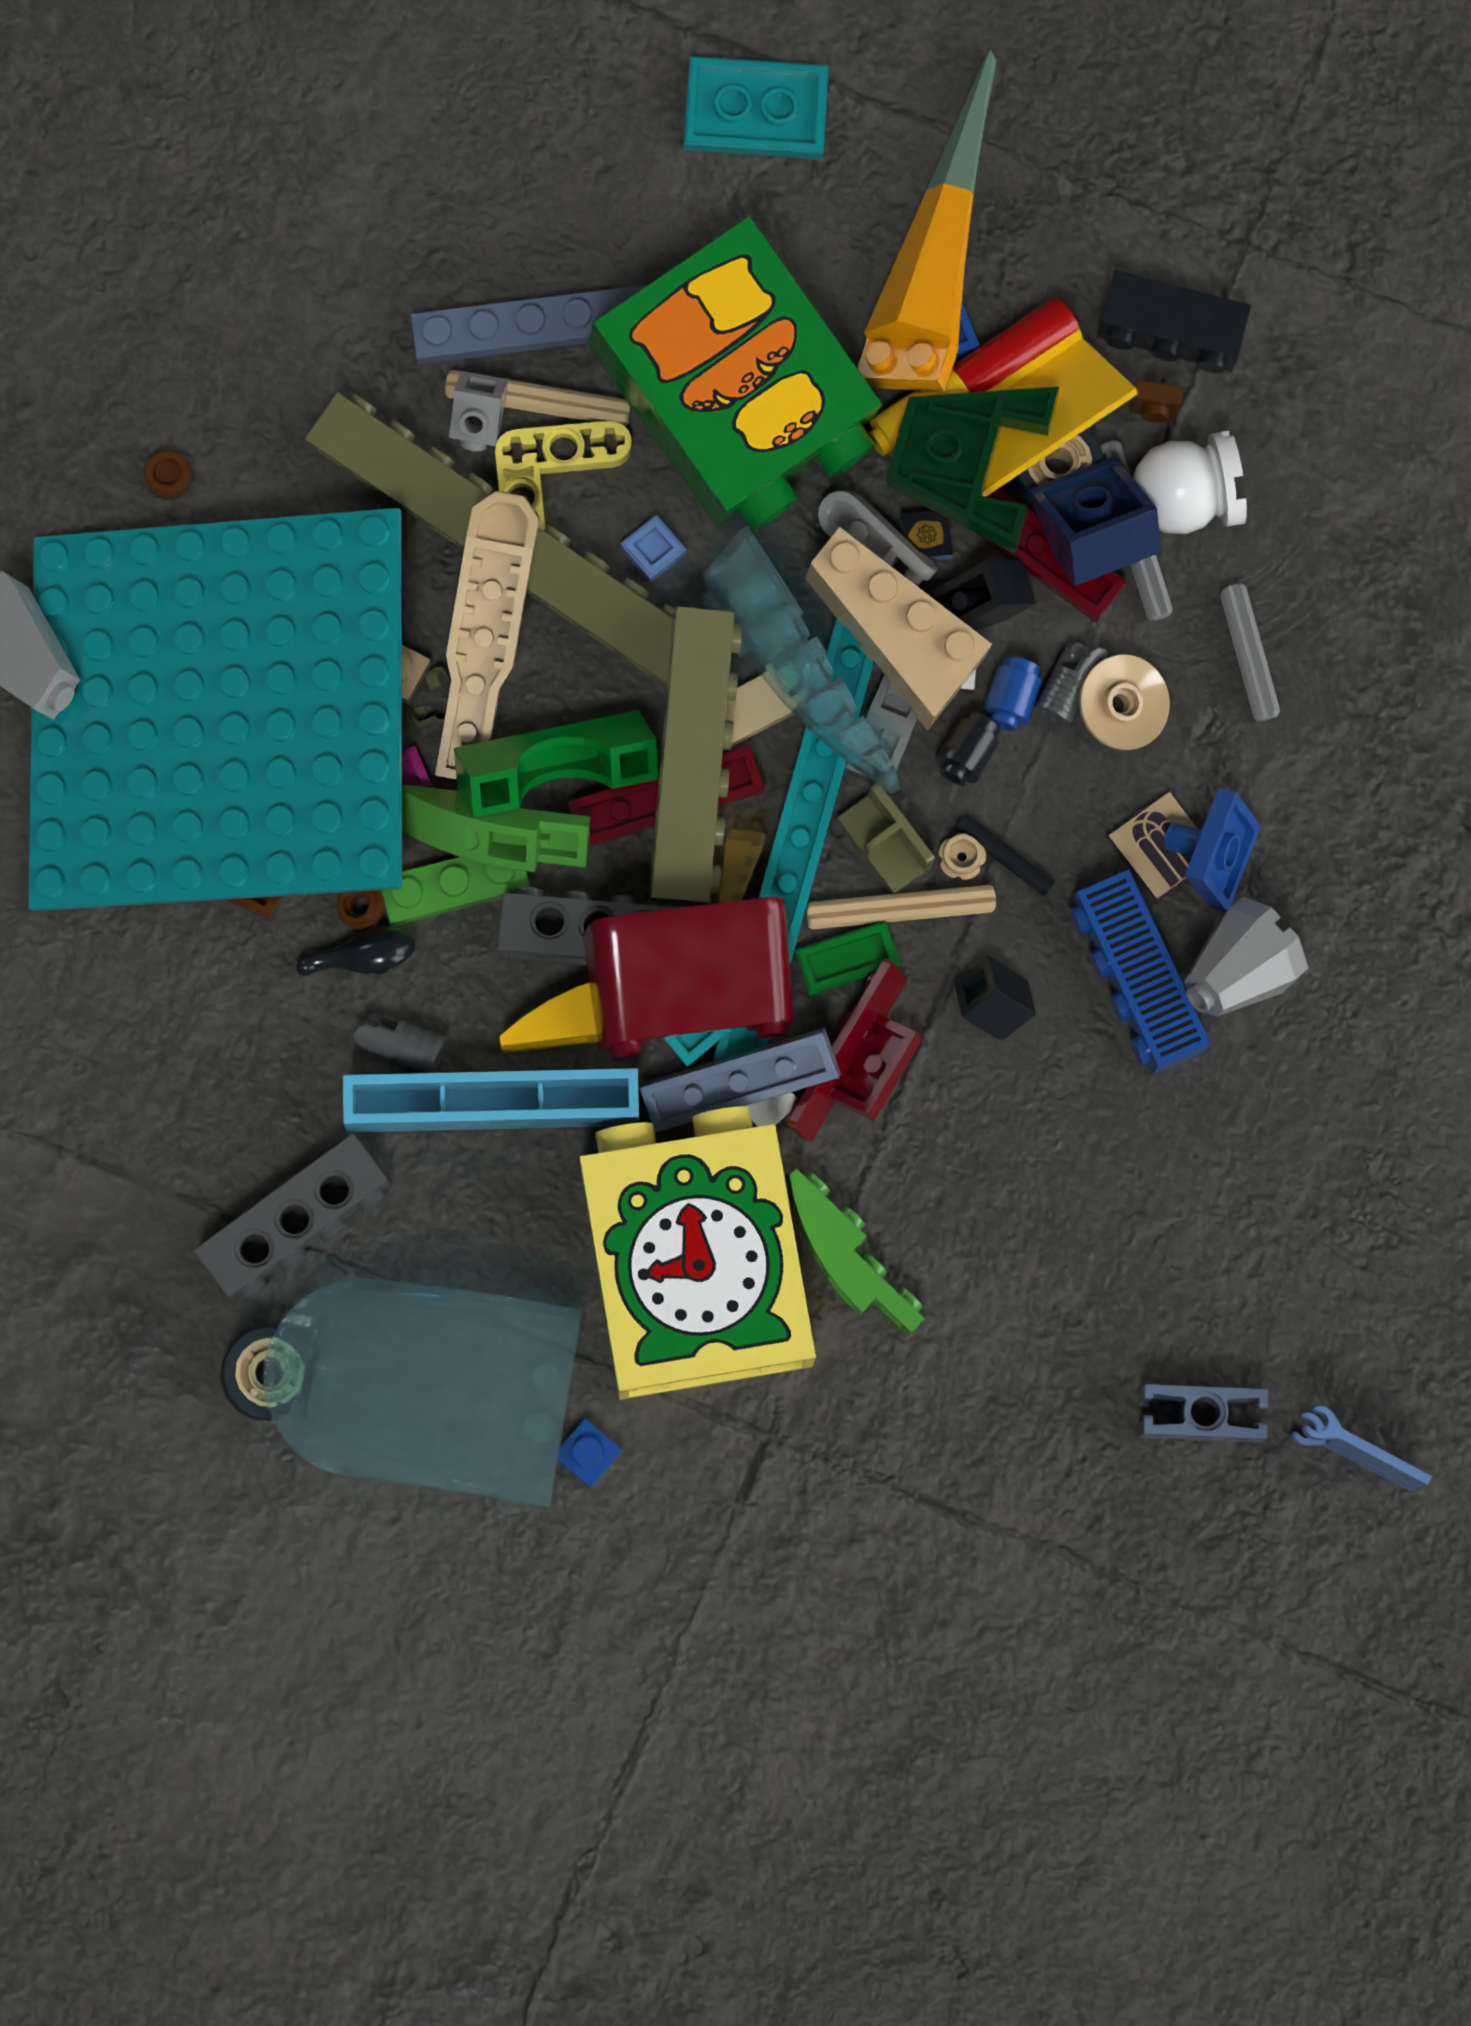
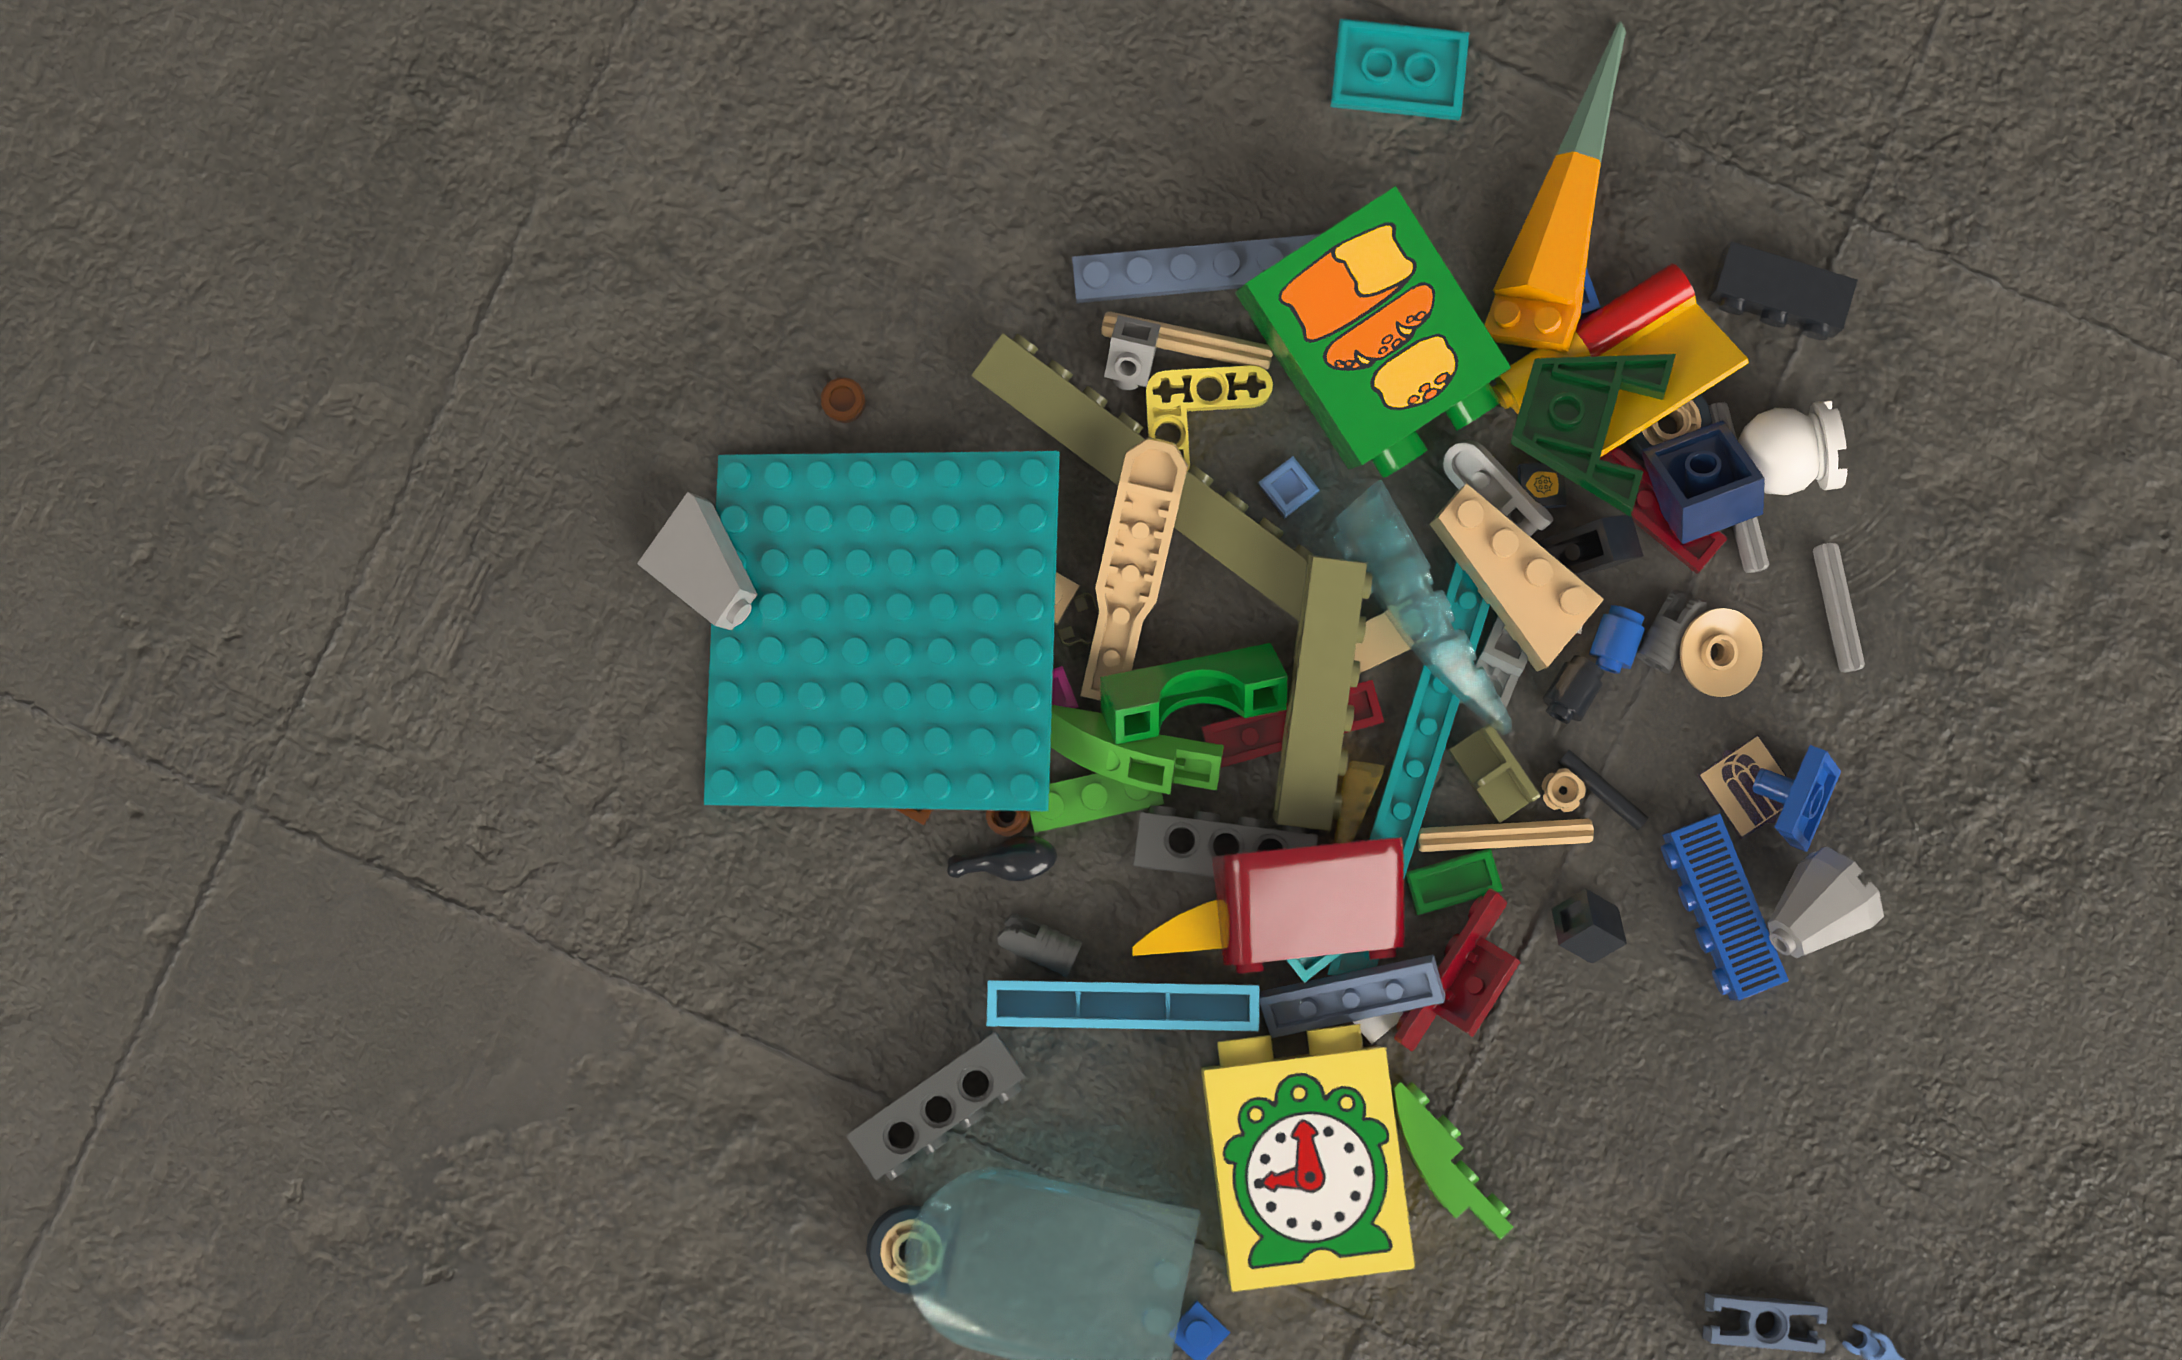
camera: 10 degrees right, 5 degrees up
(1157, 401) = (1764, 366): reddish brown plate -> none

